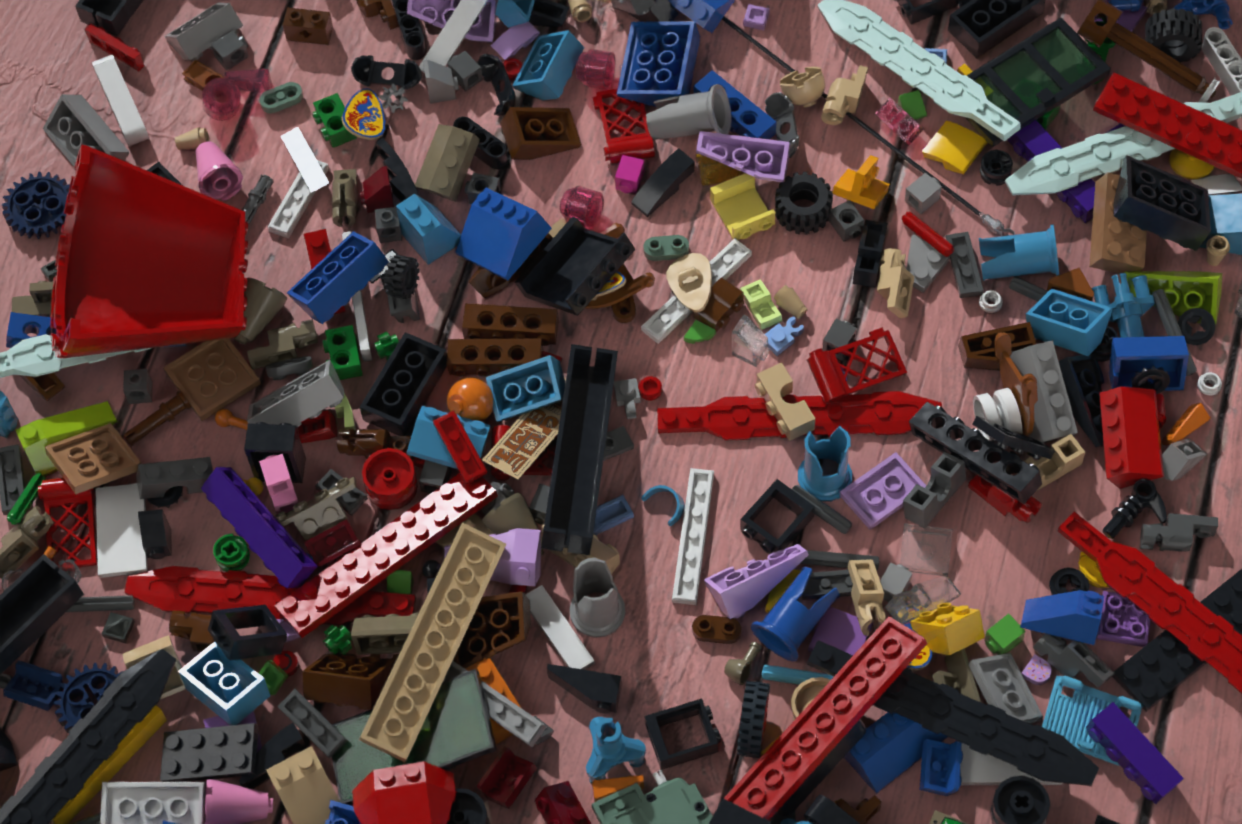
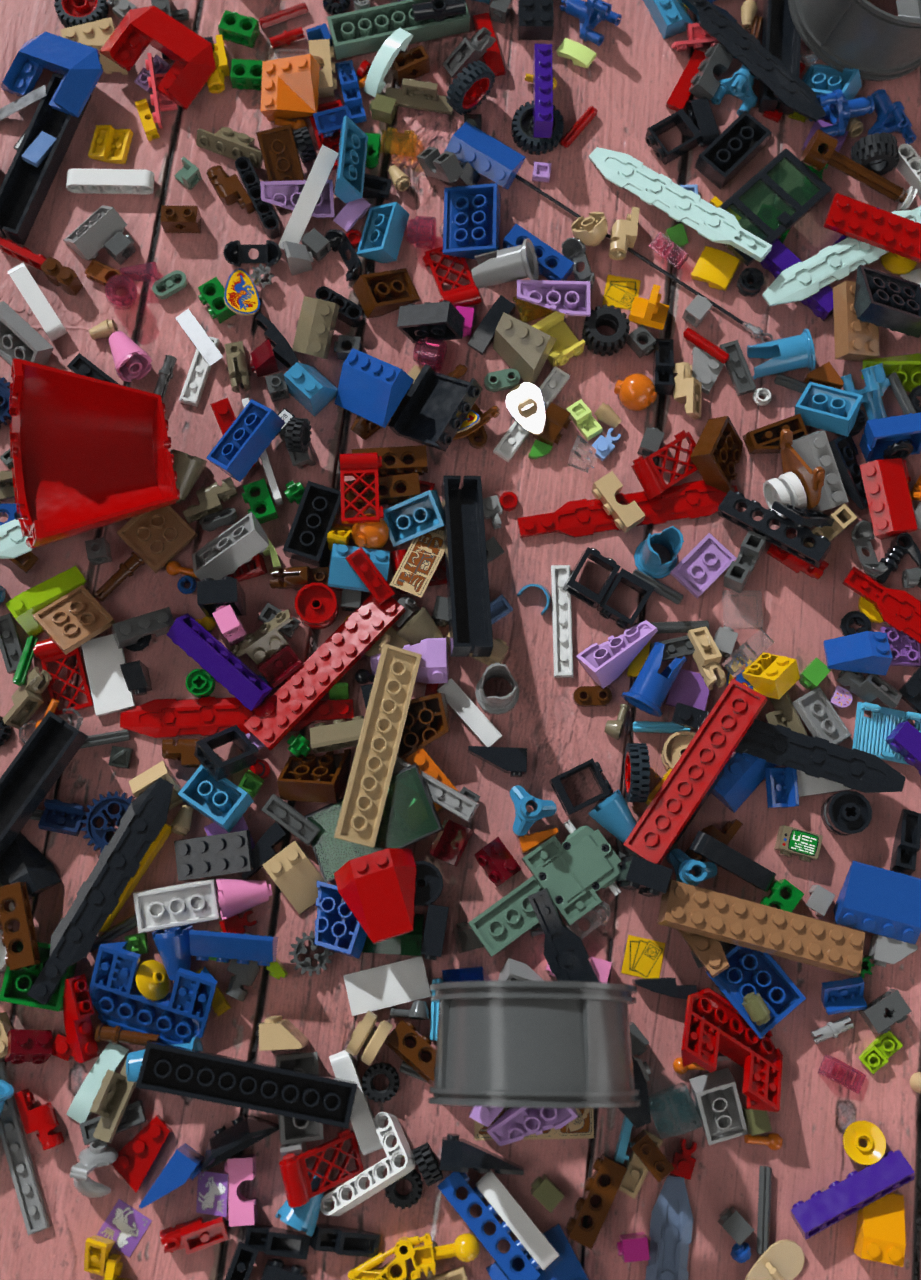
camera: 15 degrees left, 15 degrees up
(154, 74) = (61, 276): none -> reddish brown brick
(178, 712) = (182, 821): none -> tan cone
(233, 433) = (187, 579): none -> blue plate
(431, 399) = (340, 535): none -> yellow slope
(469, 322) = (355, 465): none -> red piece
(587, 166) = (431, 320): none -> black brick
(696, 209) = (522, 347): none -> dark tan wedge
(716, 767) = (614, 816): none -> dark azure cone
(725, 504) = (580, 591): none -> black window
(830, 277) = (636, 392): none -> orange brick
(832, 161) = (620, 291): none -> yellow sticker
(922, 360) = (718, 453): none -> reddish brown wedge
(1092, 481) = (861, 537): none -> dark grey piece

